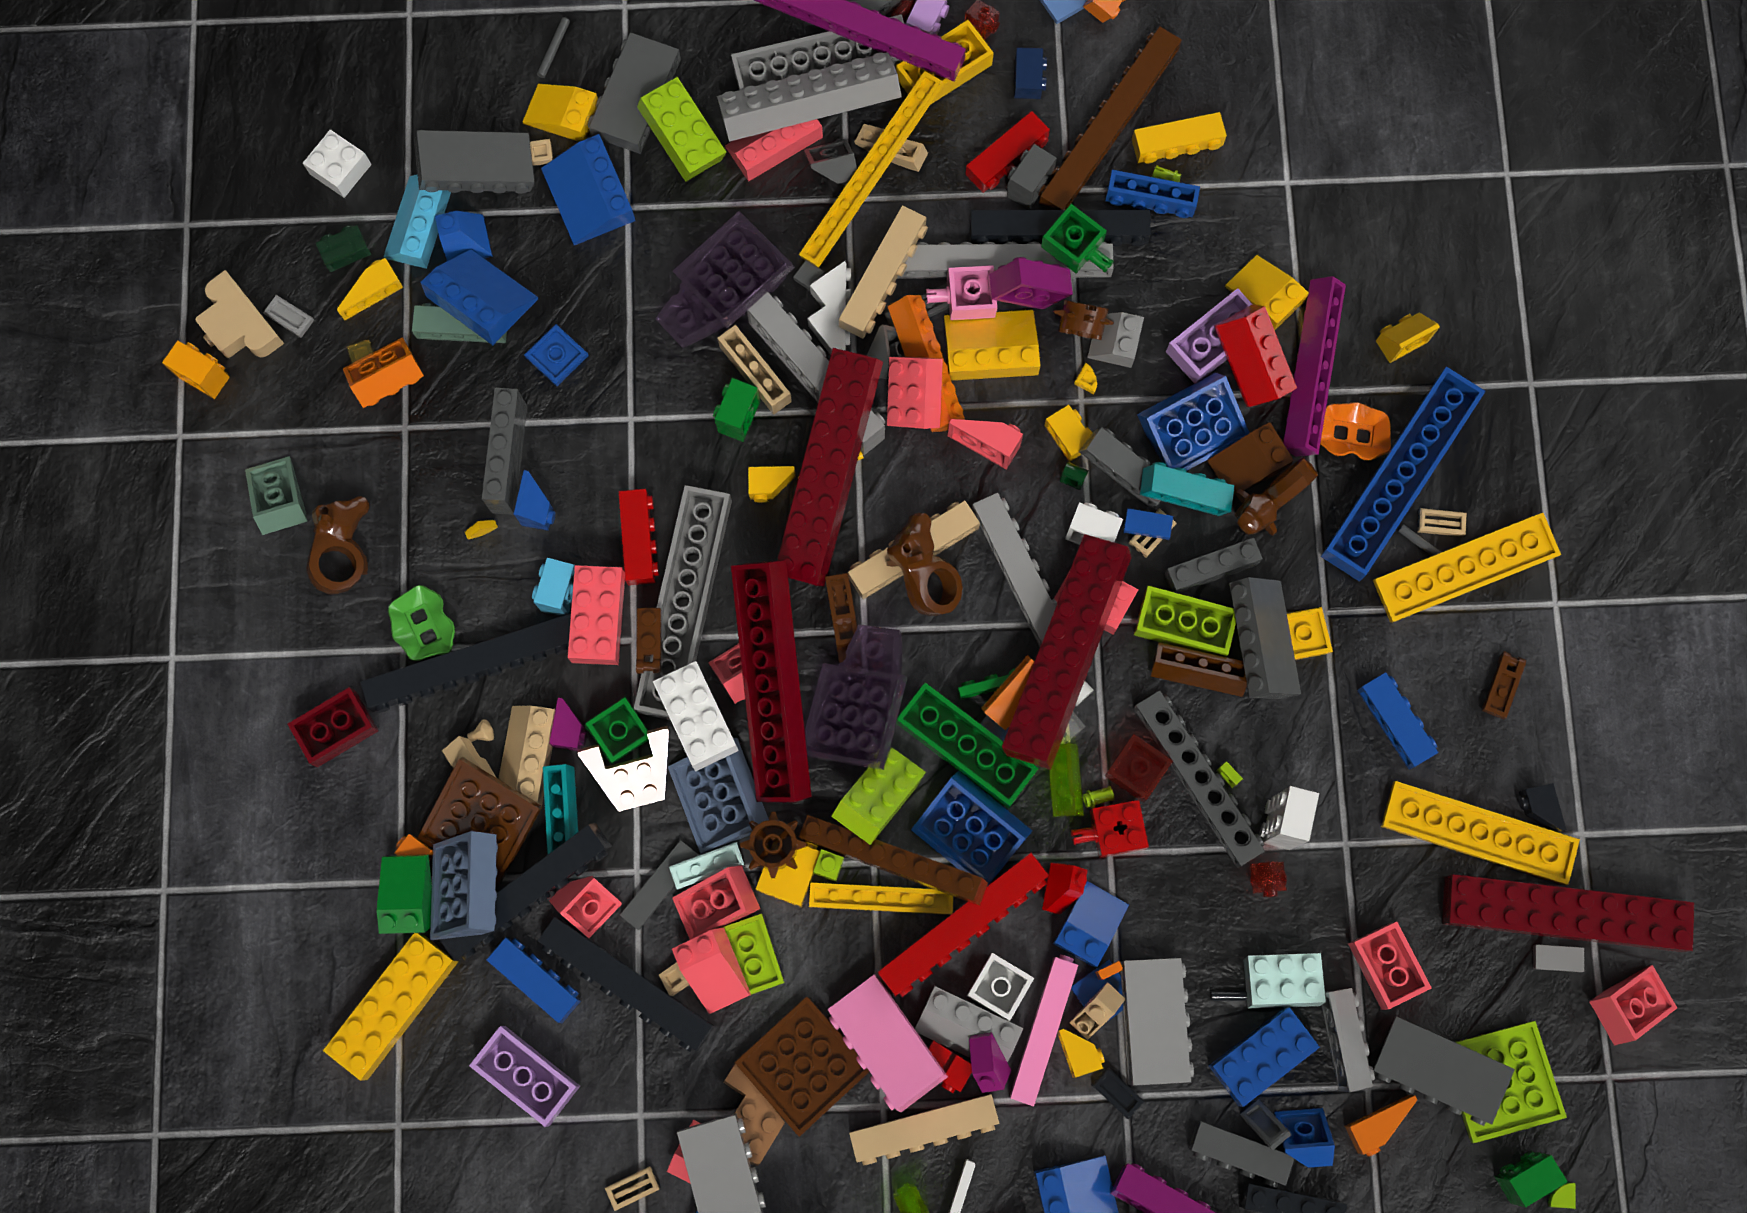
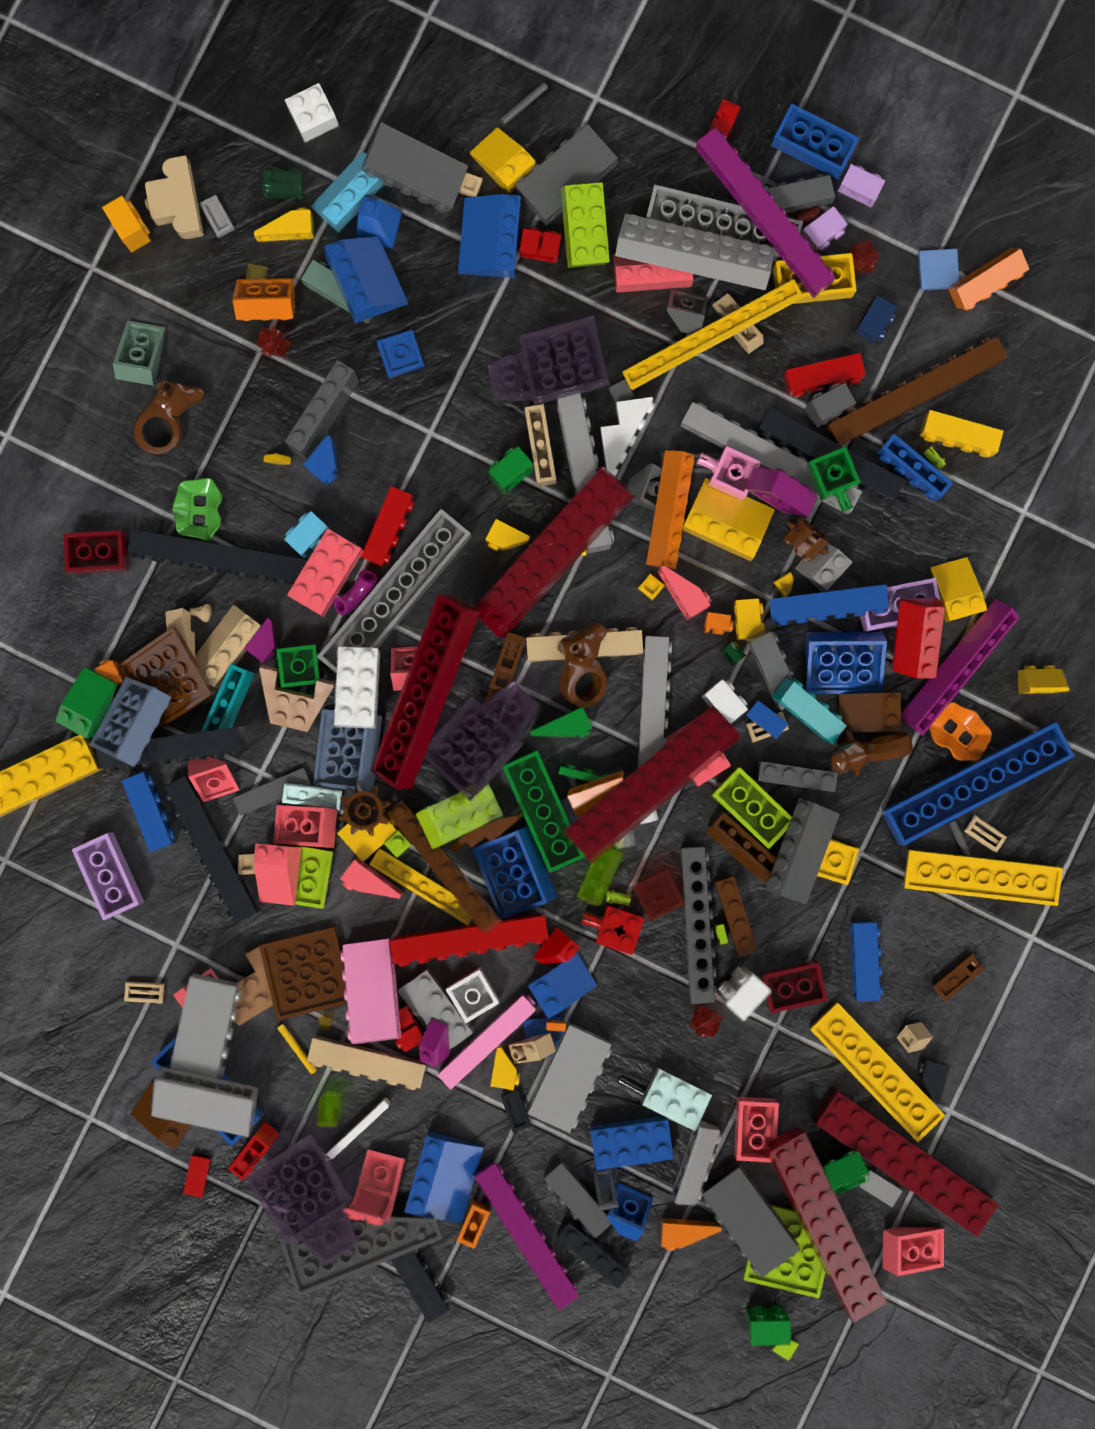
camera: 25 degrees right, 10 degrees up
(414, 410) = (273, 342): none -> clear red brick
(629, 638) = (356, 594): none -> magenta cylinder
(645, 174) = (540, 245): none -> red piece
(648, 639) = (353, 612): reddish brown plate -> none
(813, 922) = (365, 879): none -> coral slope
(838, 1158) = (296, 1048): none -> yellow bar
(854, 1112) = (325, 1023): none -> clear yellow piece
(882, 272) = (675, 422): tan brick -> none
(914, 392) = (648, 528): coral brick -> none
(921, 794) = (489, 830): none -> reddish brown slope
(942, 642) = (570, 725): none -> green slope
(949, 454) = (651, 586): none -> yellow tile
(1040, 453) = (718, 623): none -> orange brick
(1145, 370) = (829, 604): none -> blue brick
(1233, 747) = (735, 915): none -> reddish brown brick
(1342, 787) = (794, 986): none -> dark red brick
(1497, 774) = (914, 1037): none -> tan panel
(1513, 959) = (846, 1172): none -> green brick
(1525, 1027) = (825, 1223): none -> dark red brick

